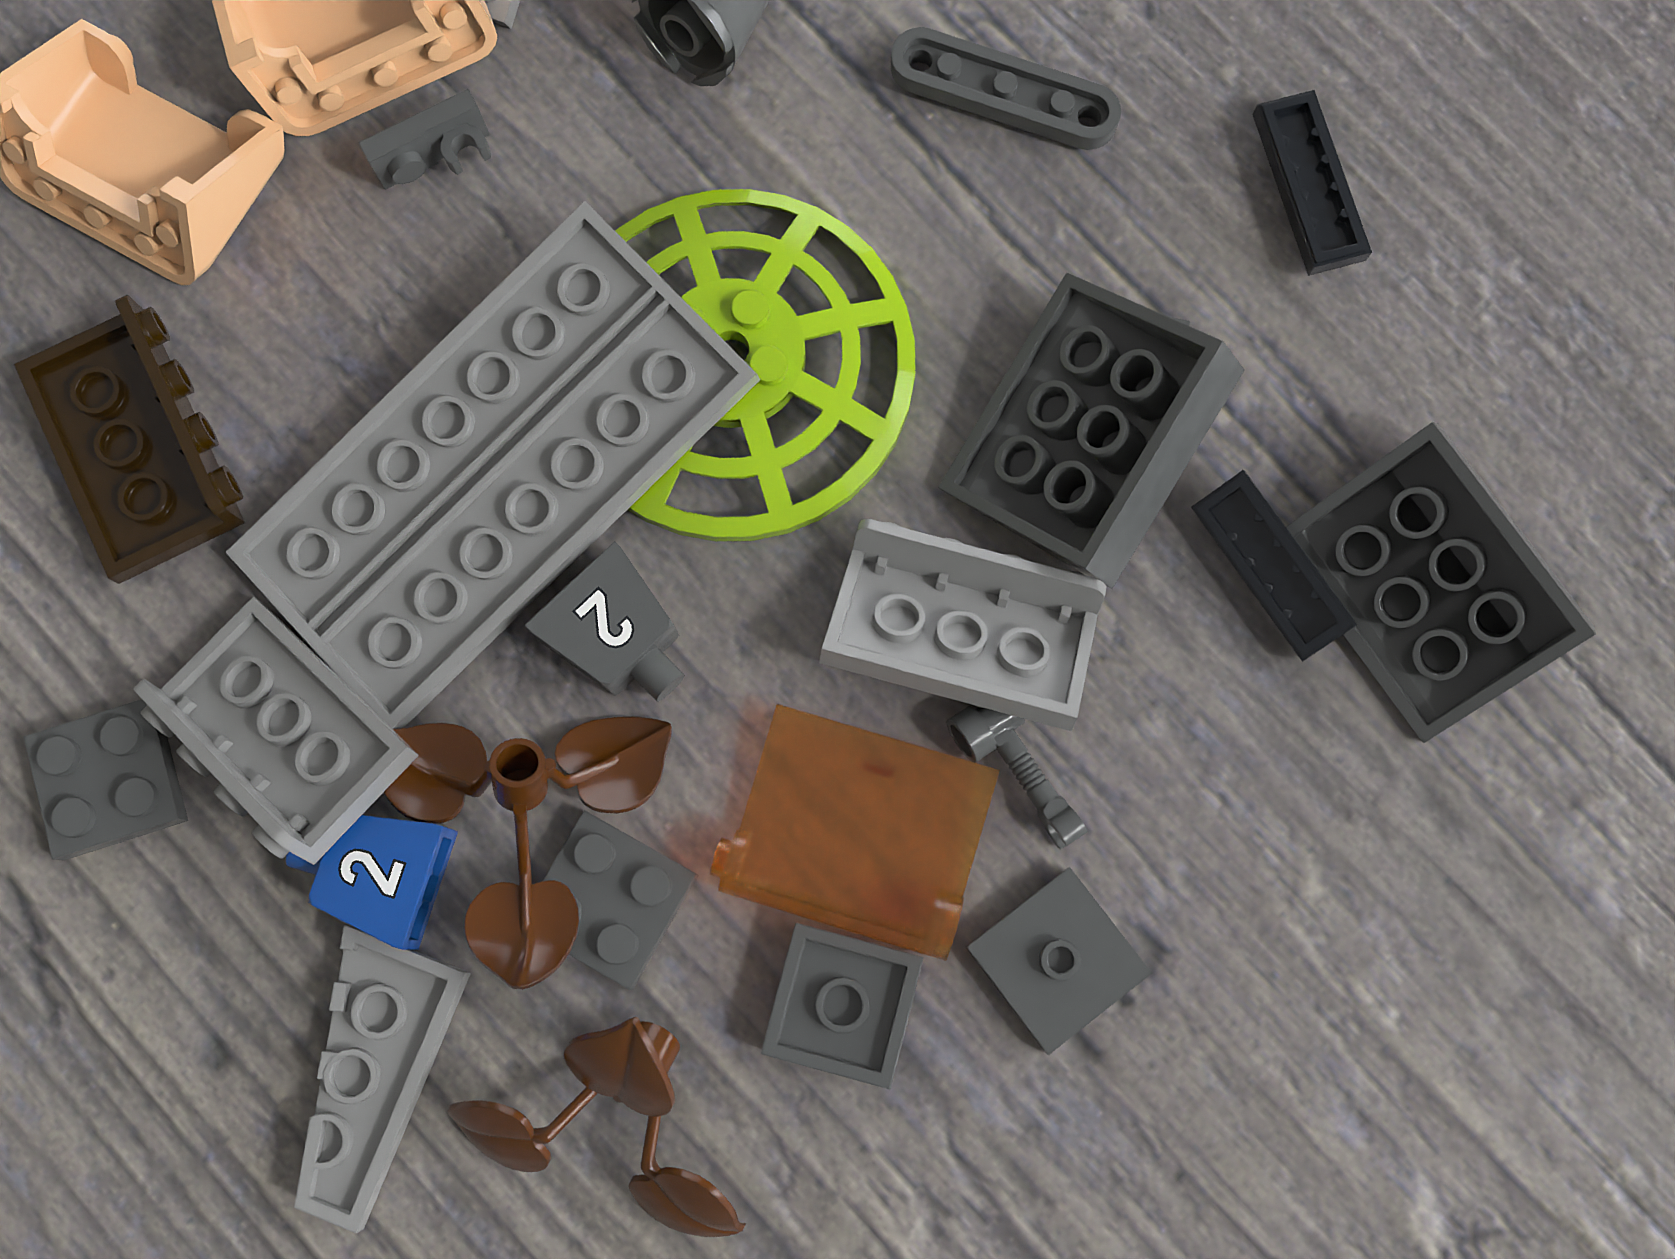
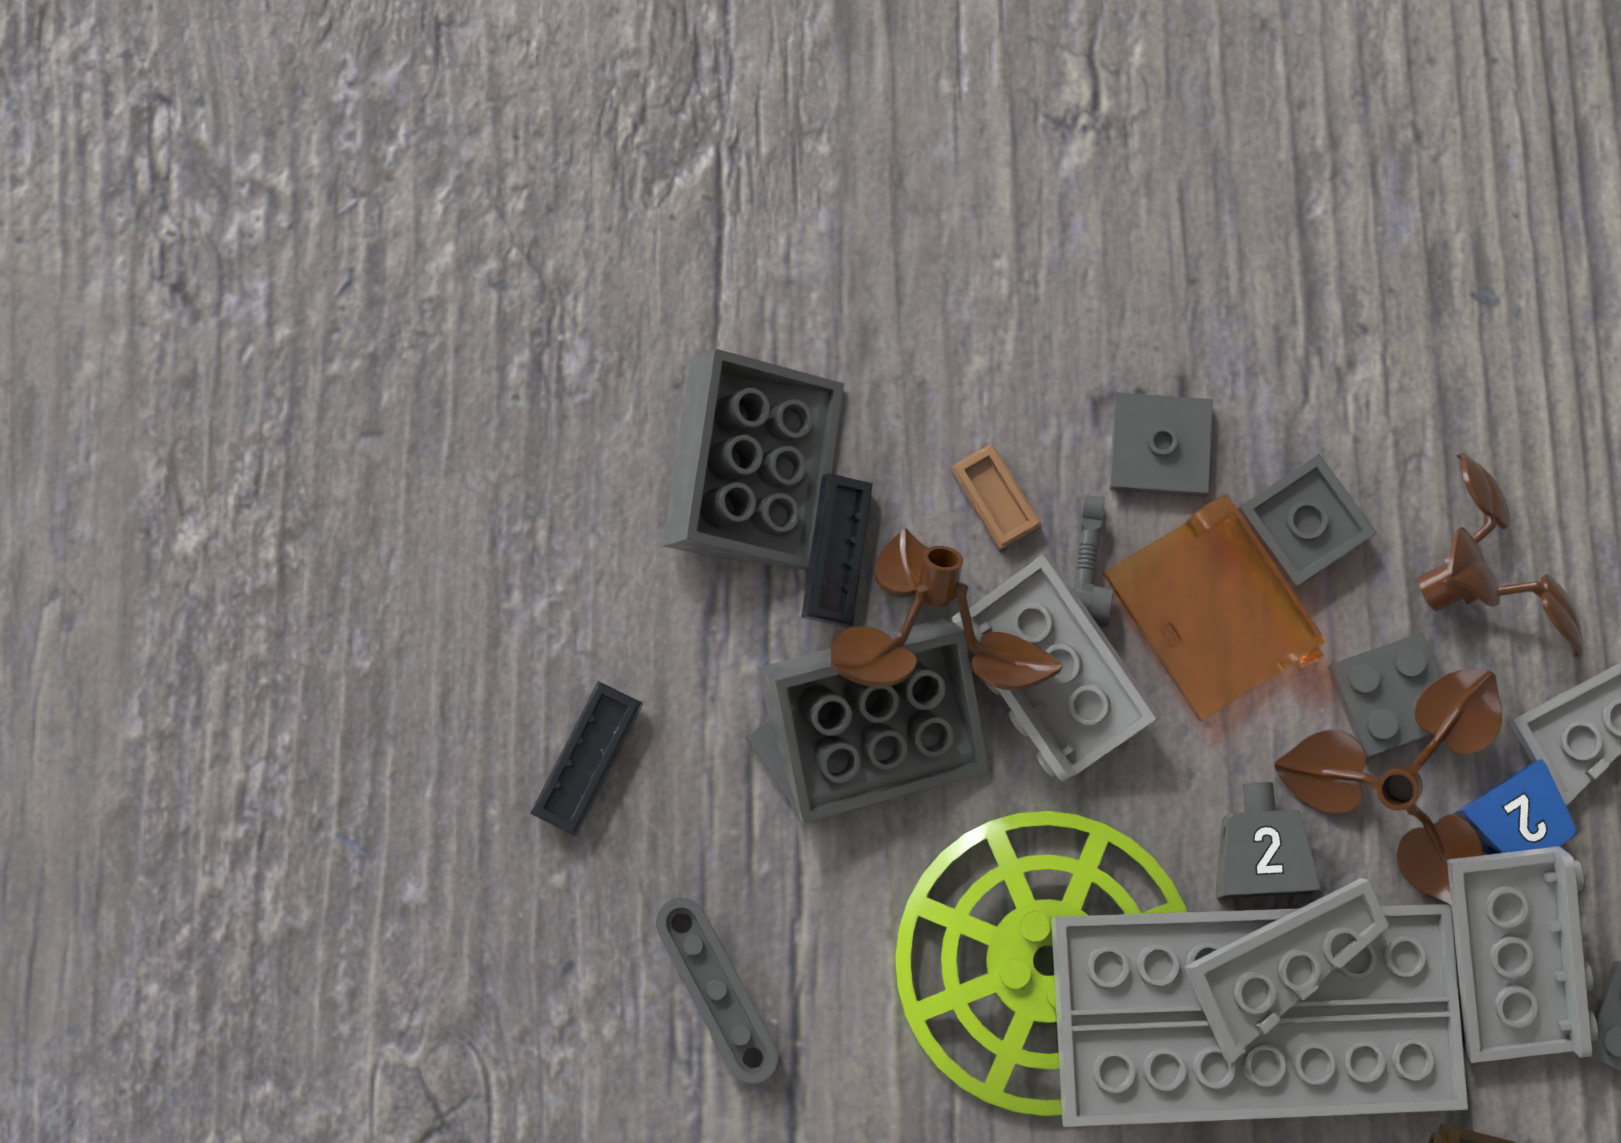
camera: 135 degrees left, 0 degrees up
(509, 504) = (1274, 967): none -> light grey wing
(1171, 759) = (996, 497): none -> medium nougat tile
(1181, 599) = (934, 576): none -> reddish brown plant

